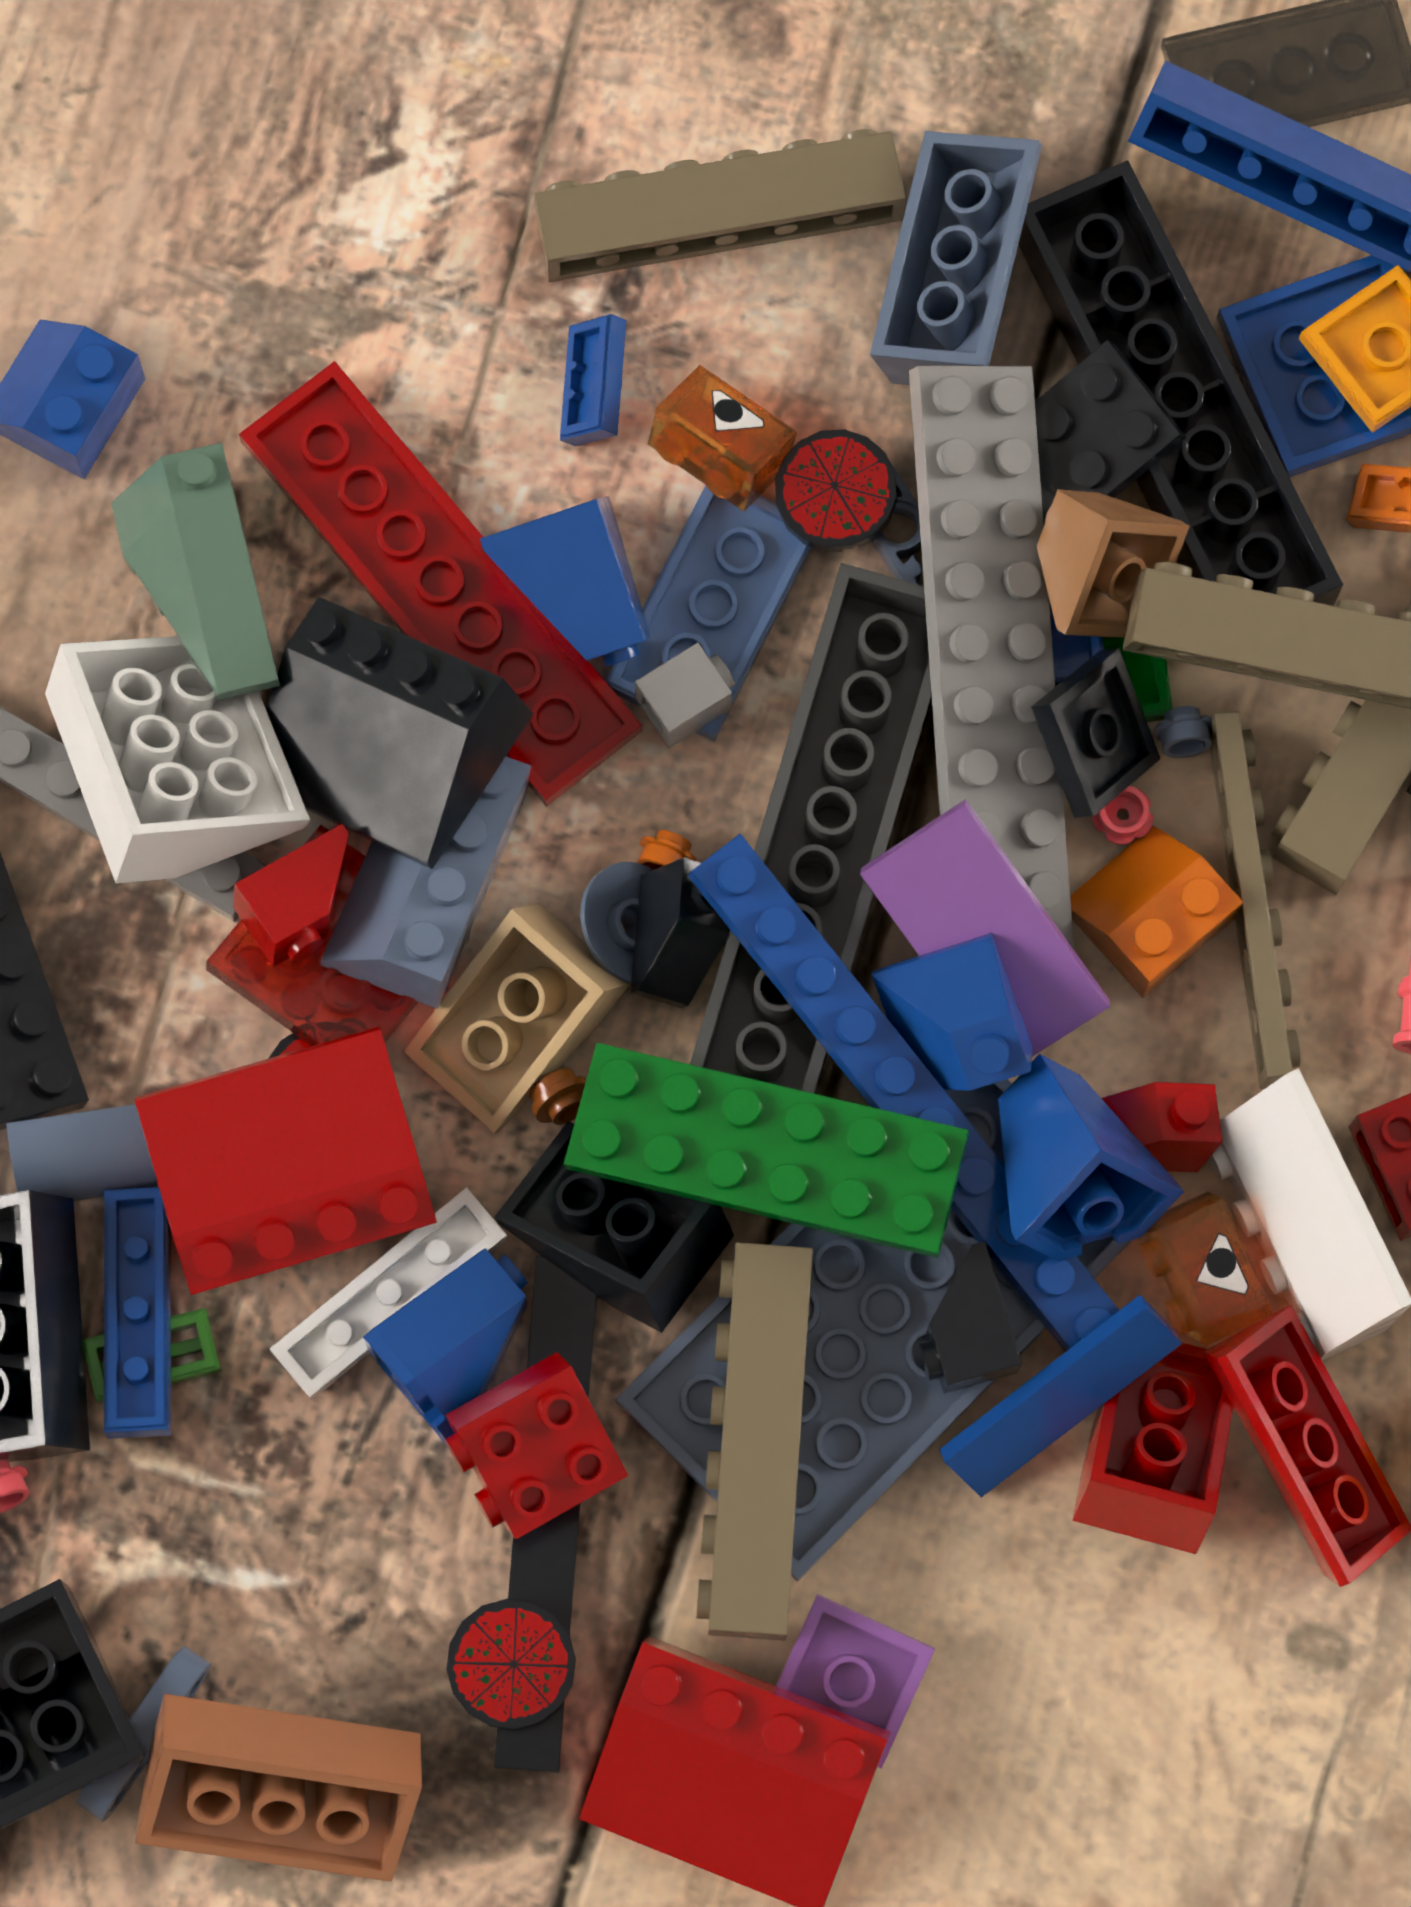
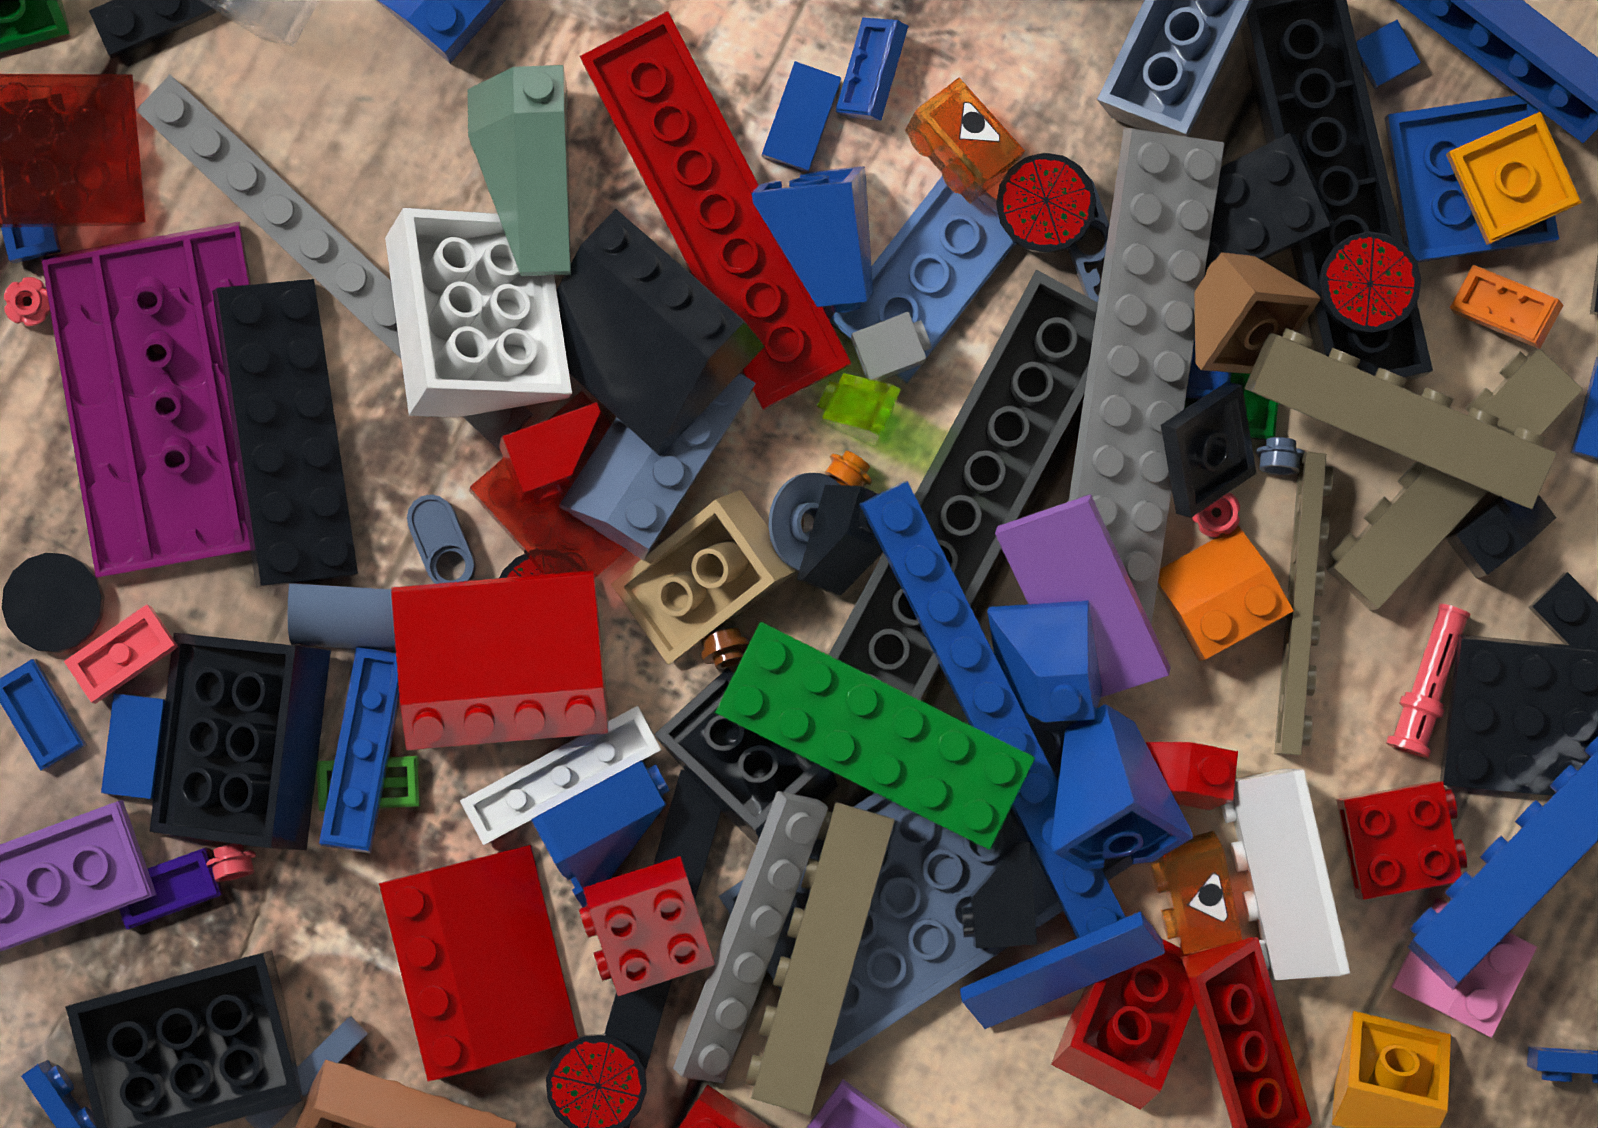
camera: 10 degrees right, 10 degrees up
(177, 1031) = (436, 532): none -> sand blue piece
(332, 1544) = (479, 962): none -> red slope
(520, 454) = (801, 117): none -> blue tile
(665, 770) = (858, 407): none -> clear neon green slope
(665, 1437) = (750, 937): none -> light grey plate
(1203, 244) = (1386, 54): none -> blue tile
(1243, 495) = (1369, 282): none -> tile

